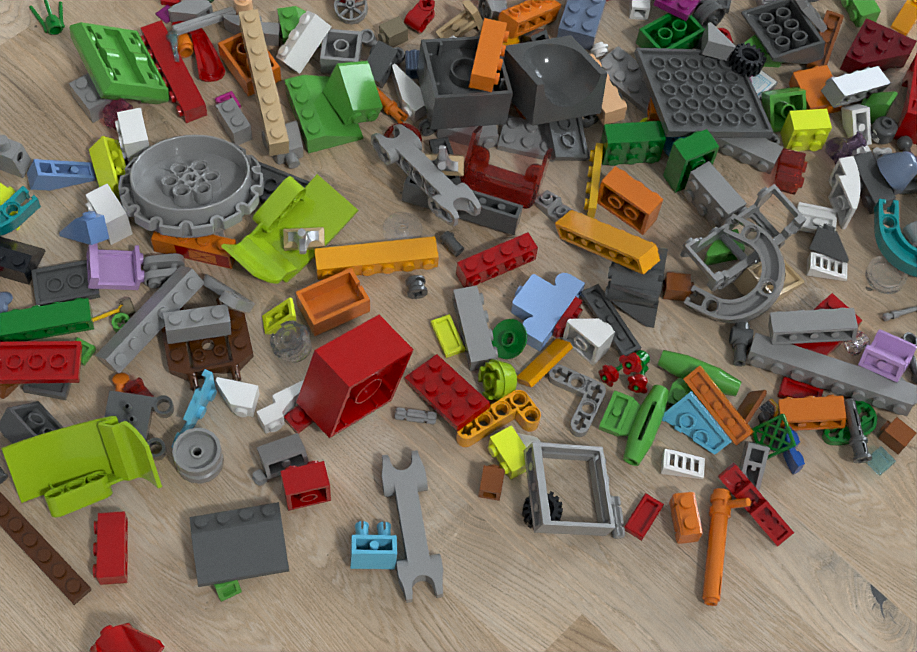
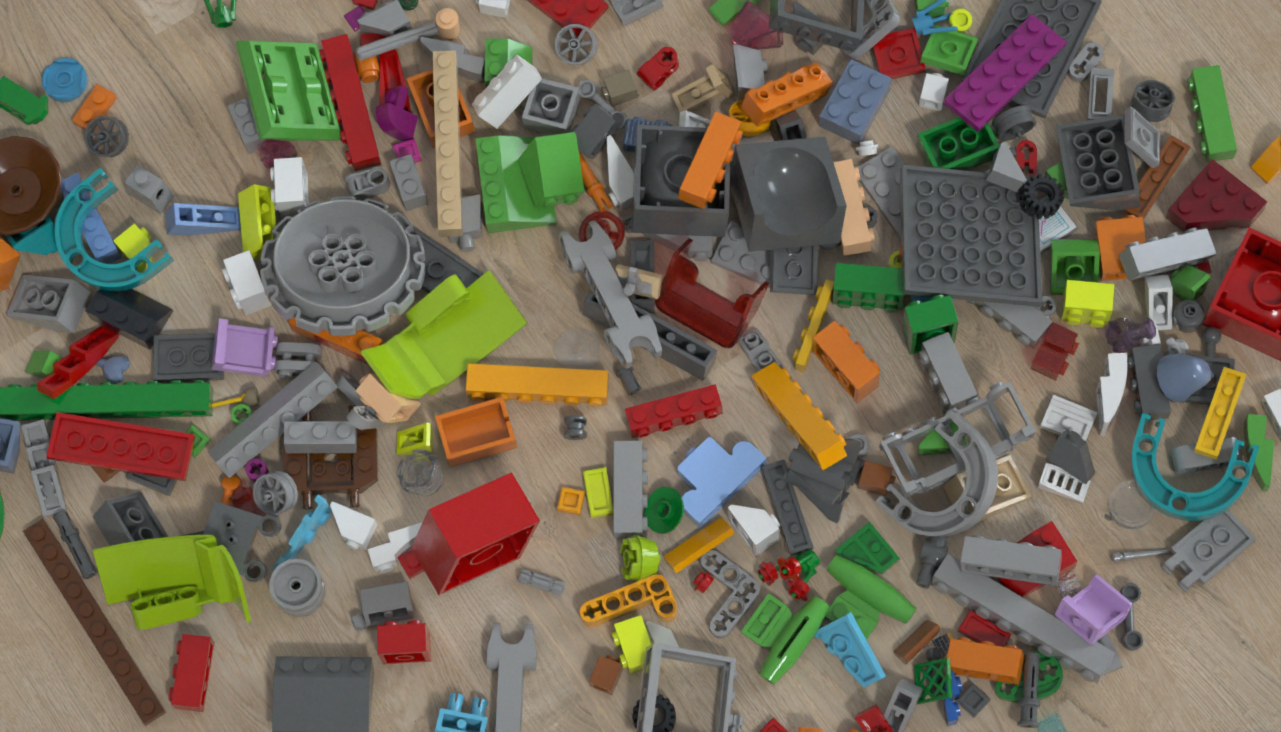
camera: 25 degrees right, 10 degrees up
(87, 229) = (219, 302): medium blue slope -> none
(145, 364) = (258, 464): none -> magenta bush
(164, 378) = (284, 487): none -> light grey wheel
(173, 39) = (356, 67): clear light blue piece -> none
(199, 126) = (365, 183): none -> light grey piece
(212, 75) = (392, 118): none -> magenta brick
(252, 288) = (388, 406): none -> light nougat brick
(304, 239) = (459, 348): piece -> none
(425, 346) = (571, 501): none -> light orange tile
(447, 392) = (580, 562): red plate -> none
(555, 391) = (703, 581): none -> red plate
(572, 312) = (746, 489): red slope -> none
(674, 470) = (818, 681): white slope -> none
(688, 341) = (869, 550): none -> green wing
(718, 405) = (878, 634): orange plate -> none
(809, 448) = (973, 700): none -> dark grey tile
(896, 435) = (1078, 703): dark orange brick -> none

